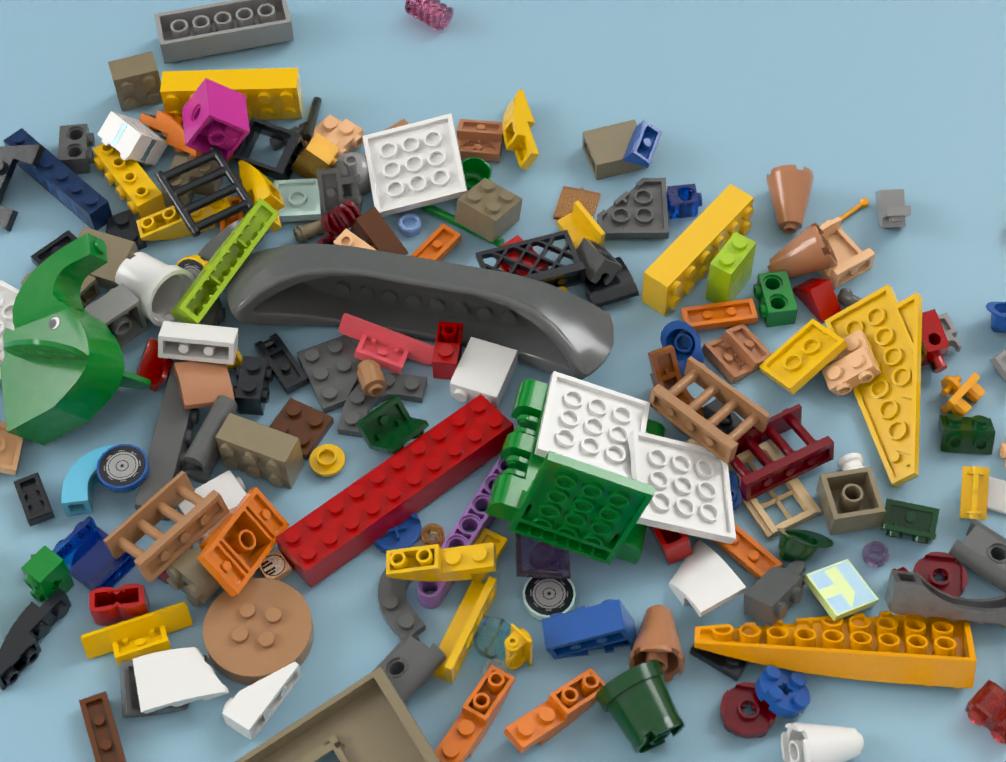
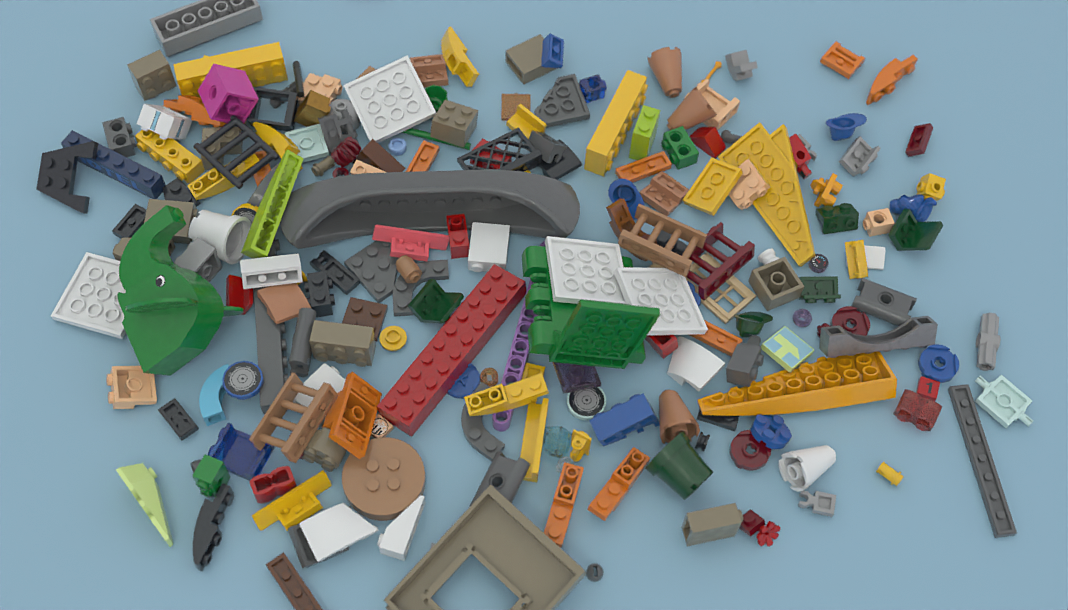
camera: 20 degrees left, 5 degrees up
(686, 683) = (702, 441): none -> black bush
(921, 488) = (818, 263): none -> tile

